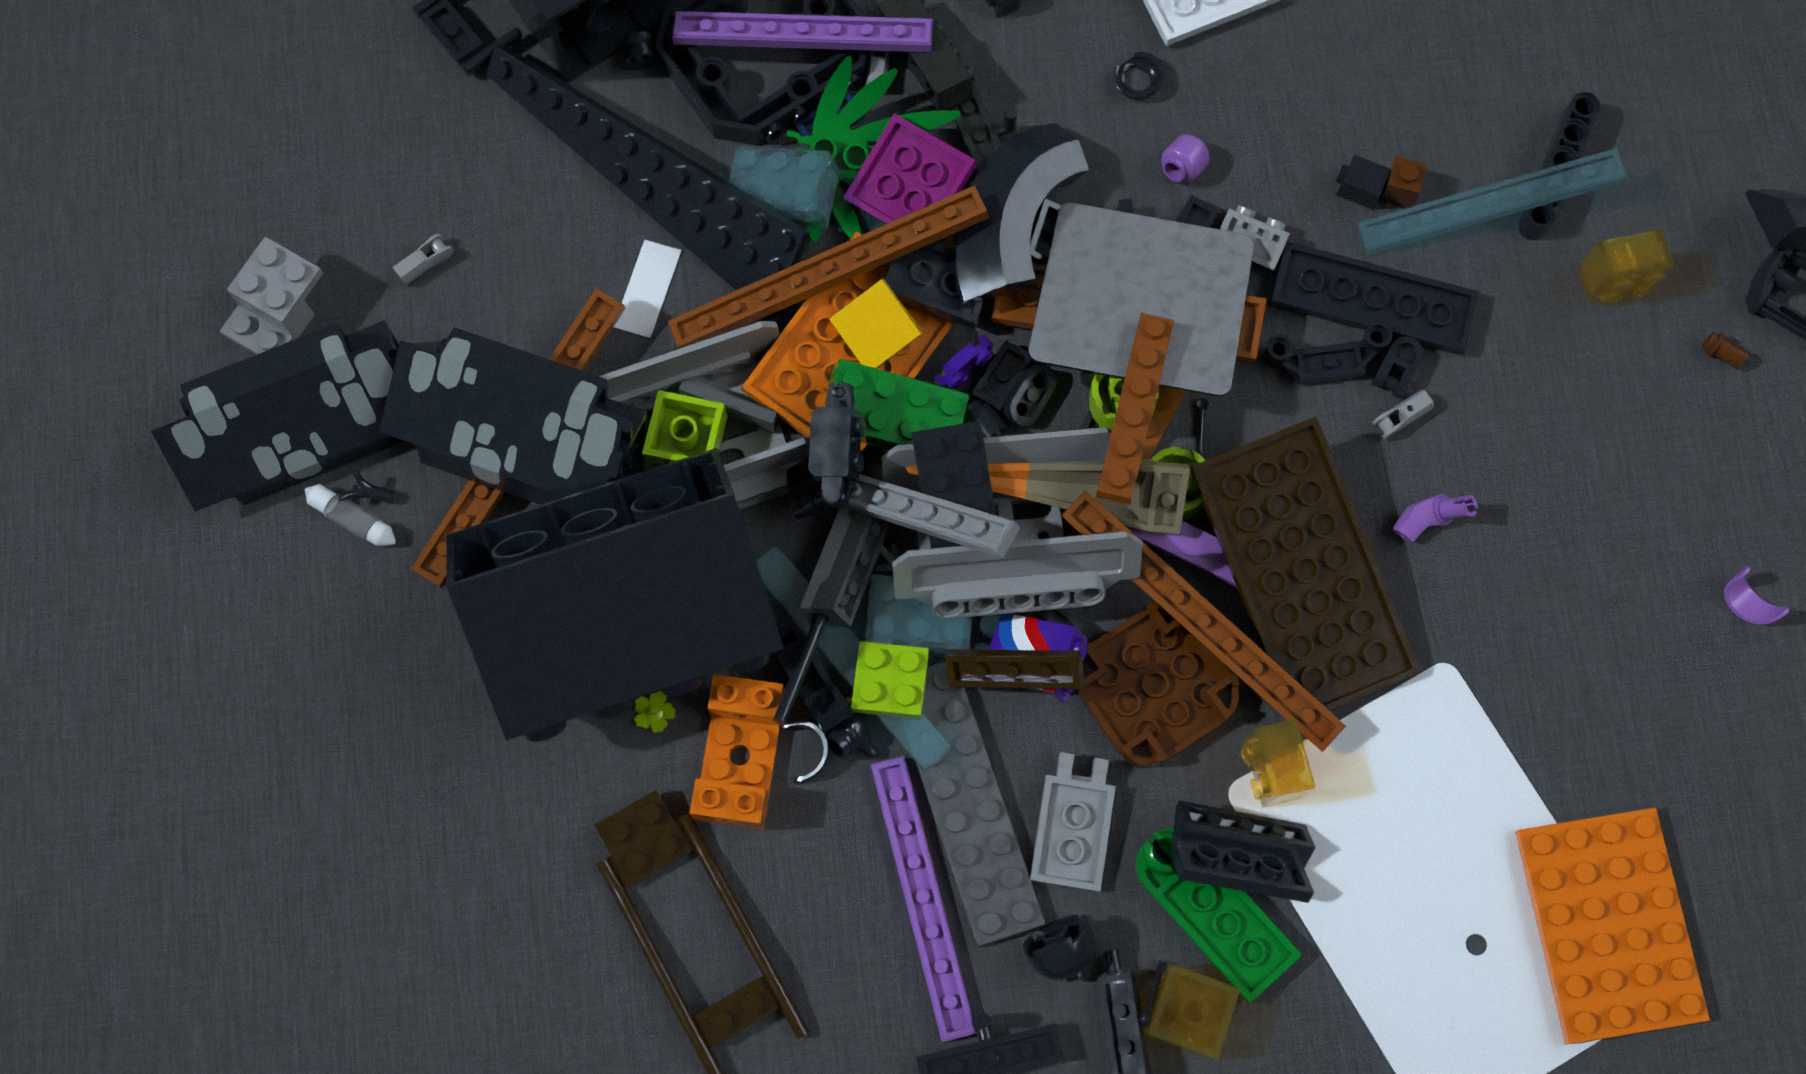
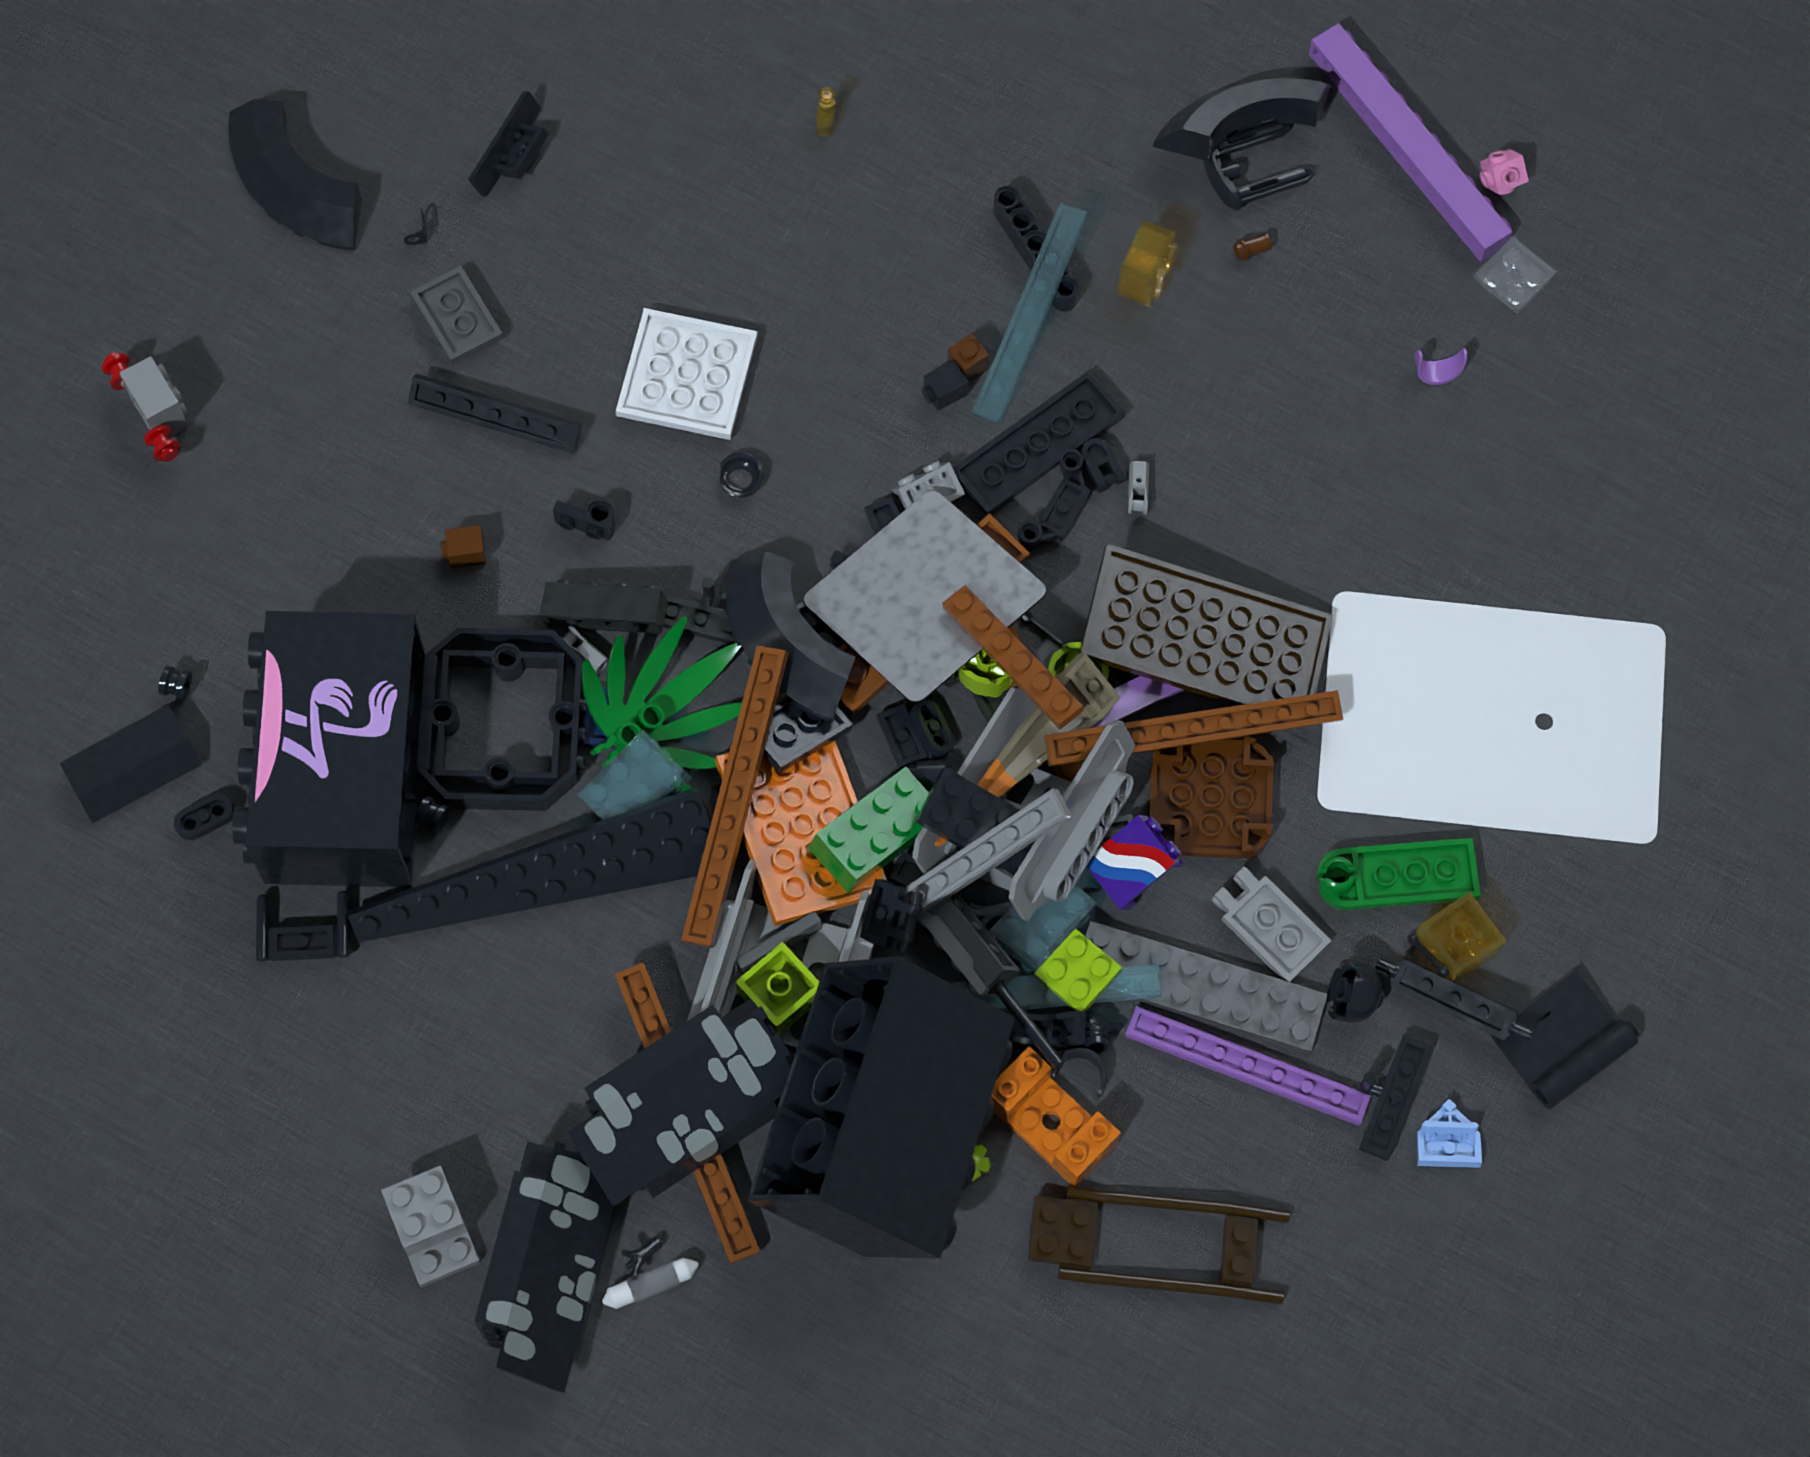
camera: 55 degrees left, 5 degrees down
(417, 263) = (478, 1095): light grey bar -> none
(647, 288) = (630, 939): white sticker -> none
(803, 31) = (523, 683): medium lavender tile -> none
(836, 444) = (882, 878): black hinge -> none
(876, 325) = (804, 793): yellow tile -> none
(907, 172) = (700, 689): magenta plate -> none
(964, 361) = (875, 753): dark purple plate -> none
(1015, 668) = (1137, 878): dark brown plate -> none
(1185, 158) = (832, 491): medium lavender head -> none
(1241, 851) = (1374, 823): black slope -> none
(1277, 763) = (1330, 754): clear yellow brick -> none
(1433, 511) = (1225, 521): medium lavender arm -> none
(1611, 926) = (1593, 625): orange plate -> none

